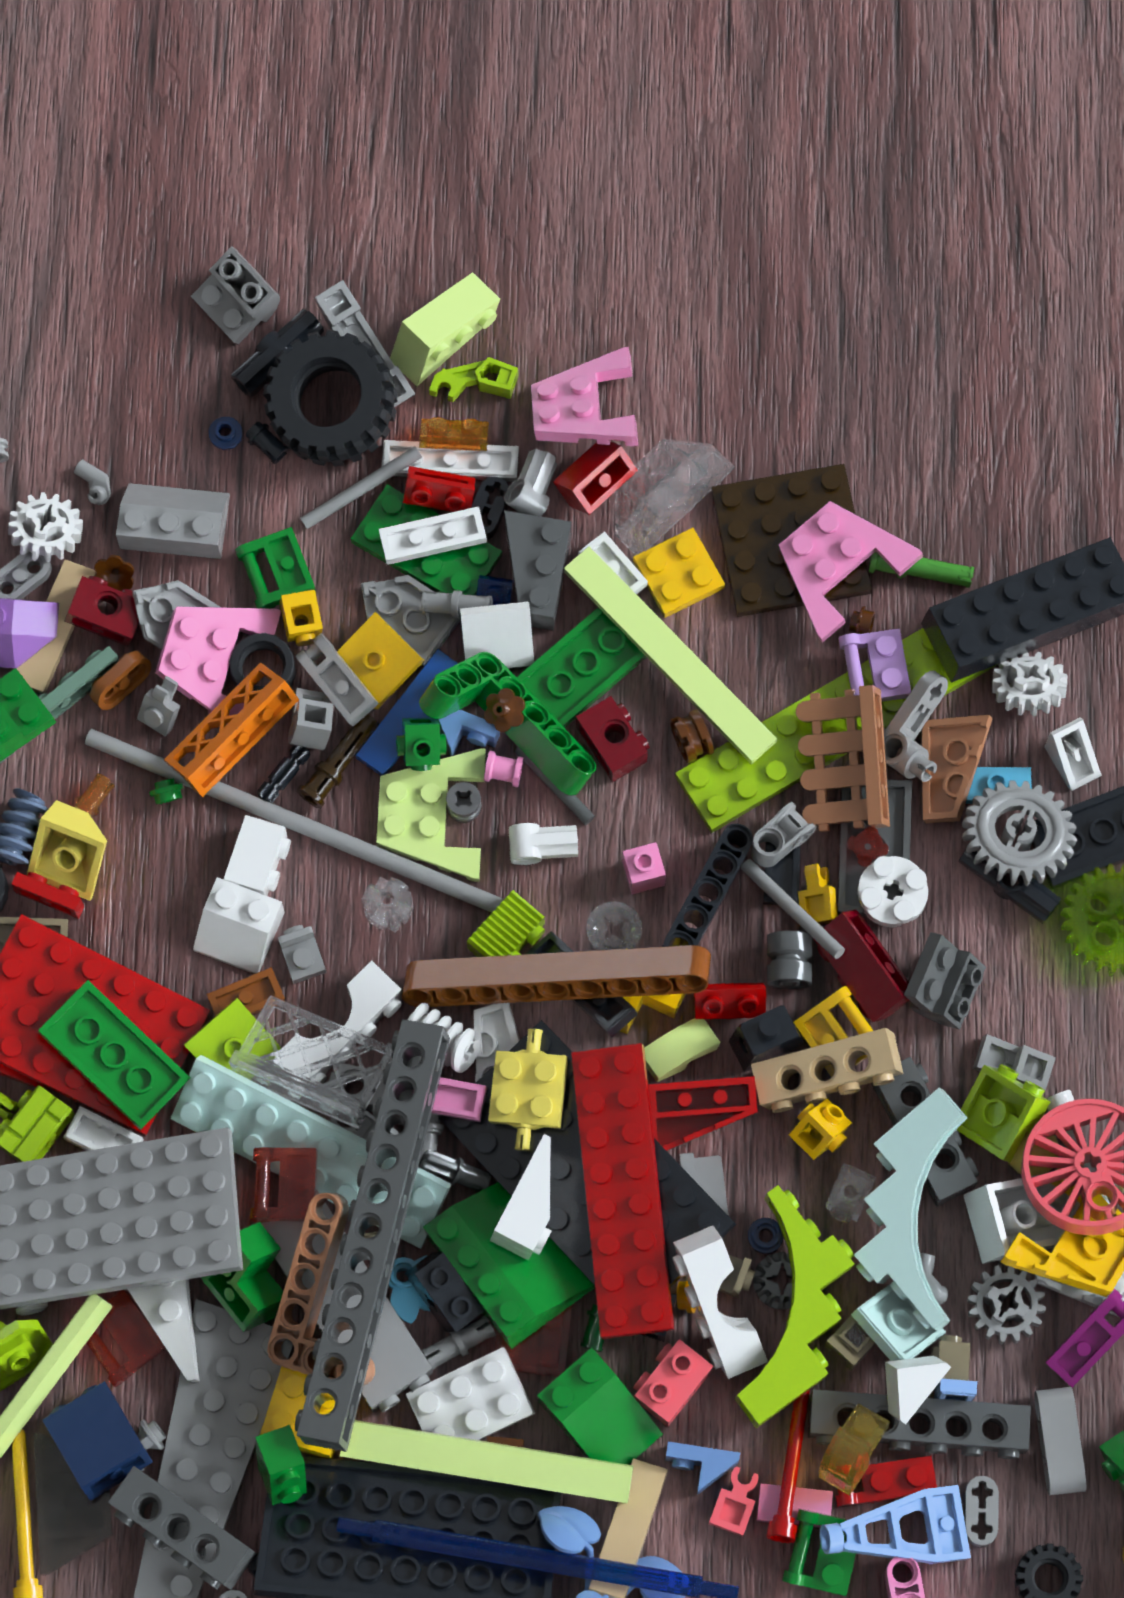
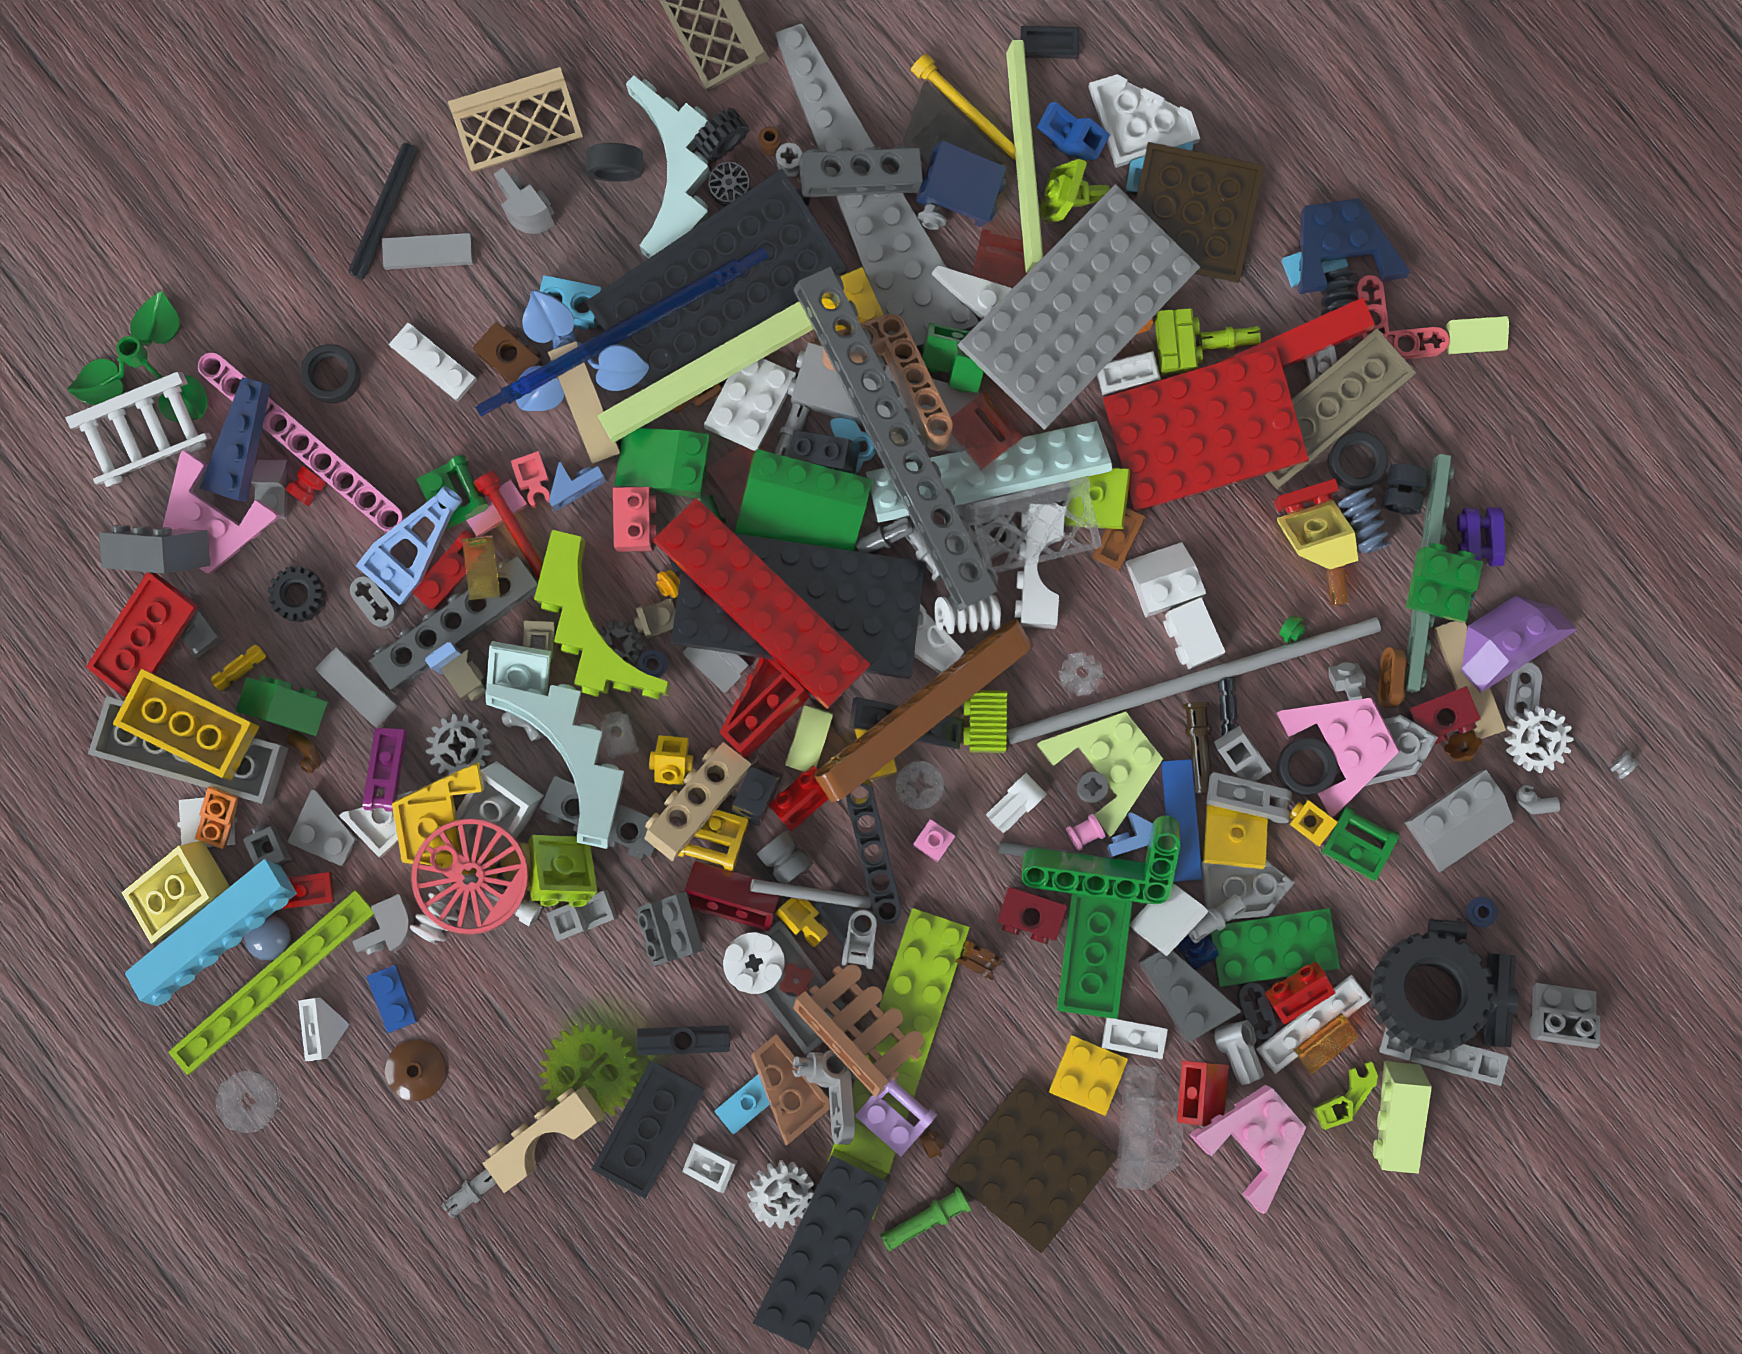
camera: 140 degrees right, 10 degrees up
(113, 1055) = (1166, 421): green plate -> none
(236, 732) = (1281, 700): orange fence -> none
(281, 1465) = (829, 251): green brick -> none
(301, 953) = (1108, 597): light grey bracket -> none
(361, 487) = (1354, 950): light grey bar -> none
(416, 732) = (1153, 798): green brick -> none
(432, 535) = (1274, 952): white plate -> none
(459, 1099) = (919, 579): bright pink tile -> none
(511, 710) = (1114, 871): reddish brown plant -> none
(525, 1217) = (807, 528): white slope -> none
(528, 1089) = (879, 620): light yellow plate -> none
(670, 655) = (1042, 1005): yellowish green tile -> none
(706, 1264) = (664, 595): white arch -> none
(829, 550) = (996, 1173): bright pink wing -> none
(911, 1383) = (473, 636): white slope -> none
(1017, 859) = (691, 1047): light grey gear -> none

